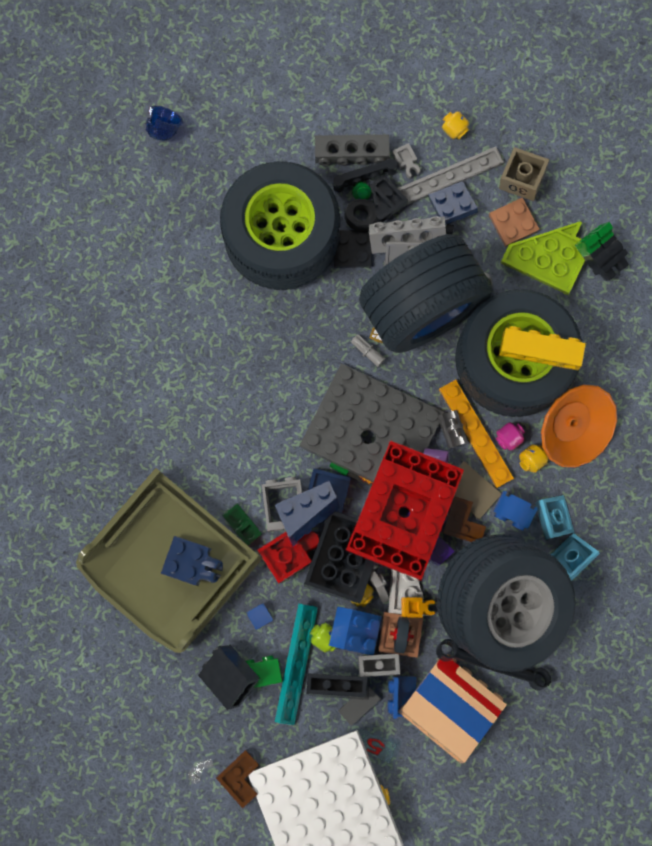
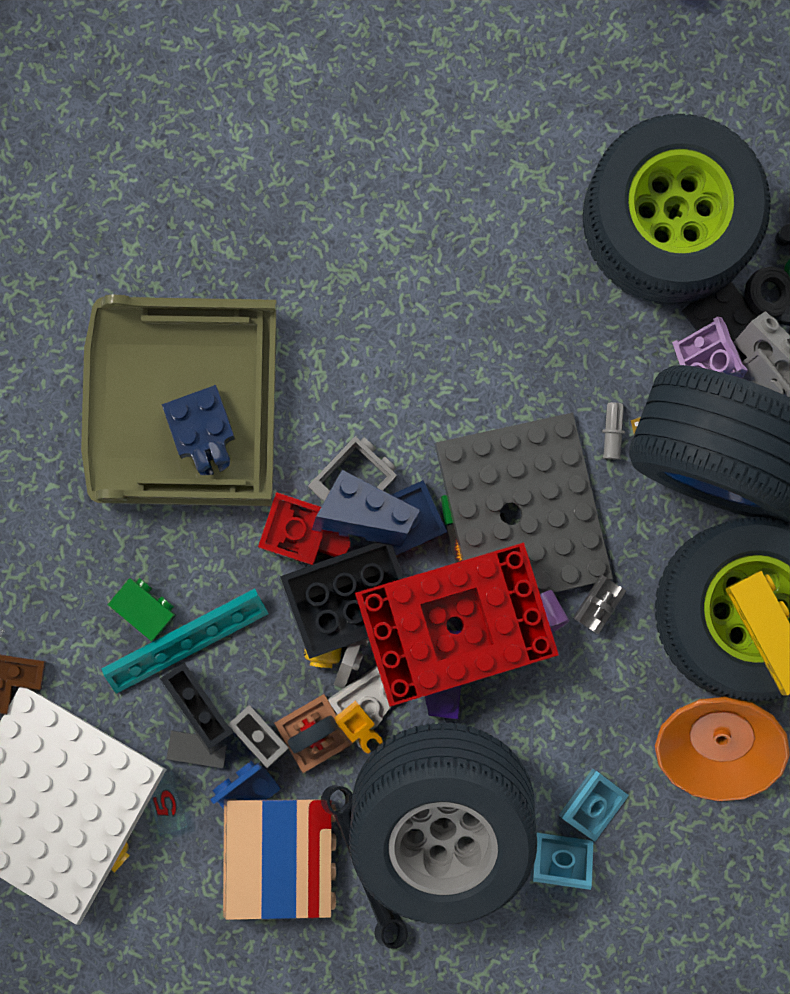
camera: 50 degrees right, 5 degrees up
(228, 676) = (108, 576): black brick -> none
(242, 524) = (293, 450): dark green slope -> none
(259, 616) = (205, 556): blue slope -> none
(321, 637) = (241, 649): lime head -> none
(355, 631) = (274, 678): blue brick -> none
(365, 266) = (711, 350): none -> lavender slope
(458, 524) = (493, 701): reddish brown plate -> none
(476, 434) = (618, 636): light orange plate -> none
(476, 489) = (548, 687): dark tan piece -> none
(510, 436) = (646, 678): dark pink head -> none
(514, 510) = (562, 752): blue brick -> none
(533, 458) = (641, 725): yellow head -> none

